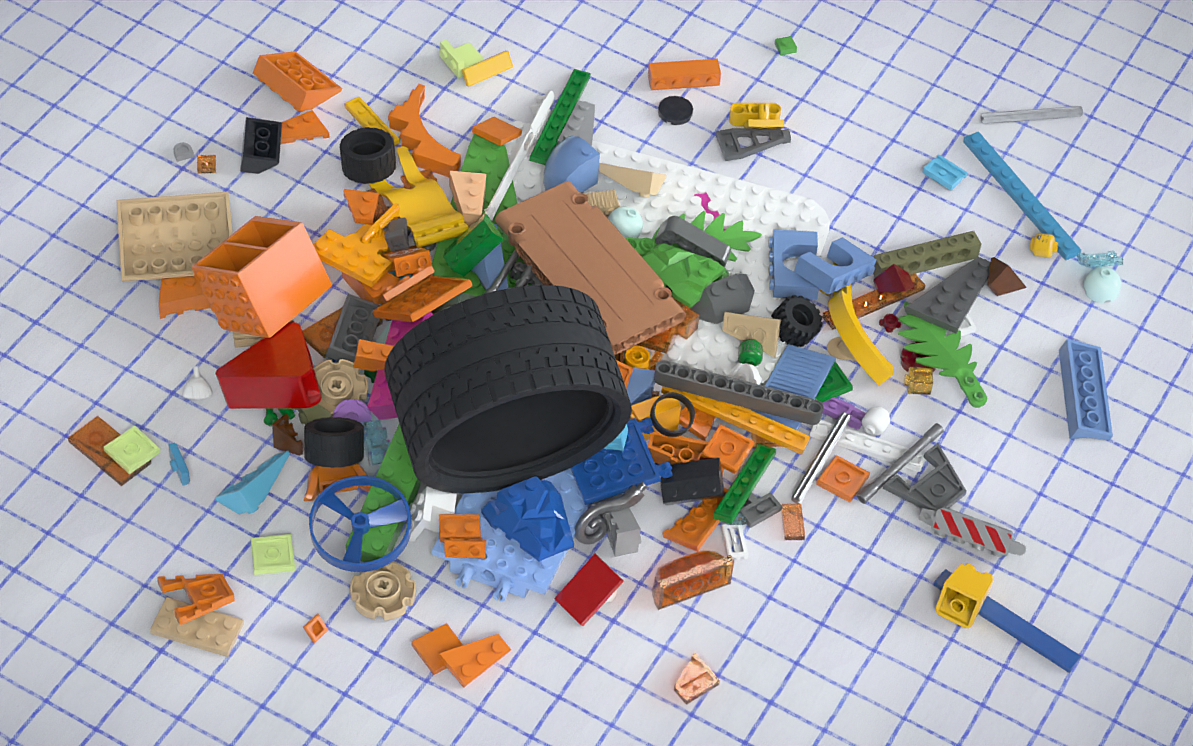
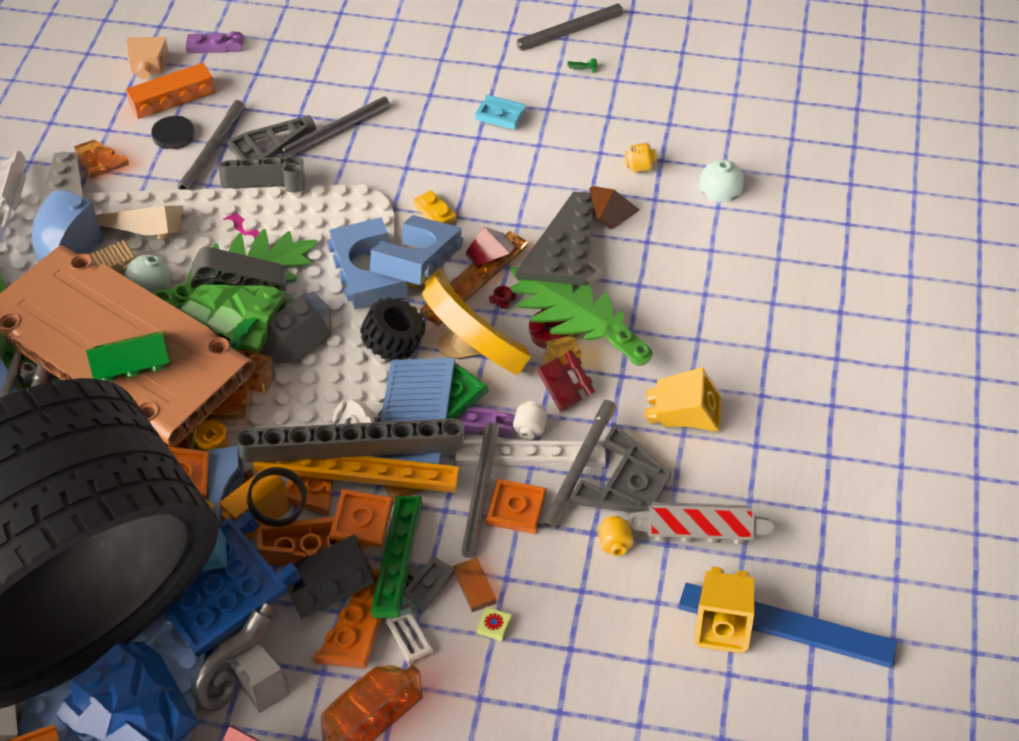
camera: 15 degrees left, 0 degrees up
(559, 116) = (36, 176): green tile -> none
(598, 281) = (129, 356): none -> green slope
(611, 115) = (99, 158): none -> clear orange wing
(656, 357) = (234, 429): clear orange arm -> none
(673, 37) = (147, 55): none -> light nougat torso
(679, 152) = (192, 174): none -> flat silver piece
(683, 287) = (242, 330): none -> green piece
(731, 41) = (214, 42): none -> medium lavender hinge
(737, 166) = (263, 172): none -> dark grey beam
(743, 111) = (265, 110): yellow beam -> none
(750, 352) = (350, 384): green head -> none
(753, 327) = (346, 356): tan wing -> none
(764, 121) = (277, 112): yellow tile -> none
(785, 45) = (276, 30): bright green plate -> none
(797, 552) = (494, 624): none -> yellowish green tile
(806, 145) = (335, 127): none -> flat silver axle
(862, 237) = (434, 208): none -> yellow plate
(907, 521) = (615, 535): none -> yellow head
(908, 400) = (560, 384): none -> dark red plate
(931, 254) = (520, 204): olive brick -> none
(999, 444) = (685, 401): none -> yellow hips
(1021, 194) = (592, 111): dark azure plate -> none
(1037, 153) = (592, 64): none -> green piece
(1085, 391) = (755, 307): medium blue arch -> none
(1100, 259) = (708, 154): clear light blue plate -> none

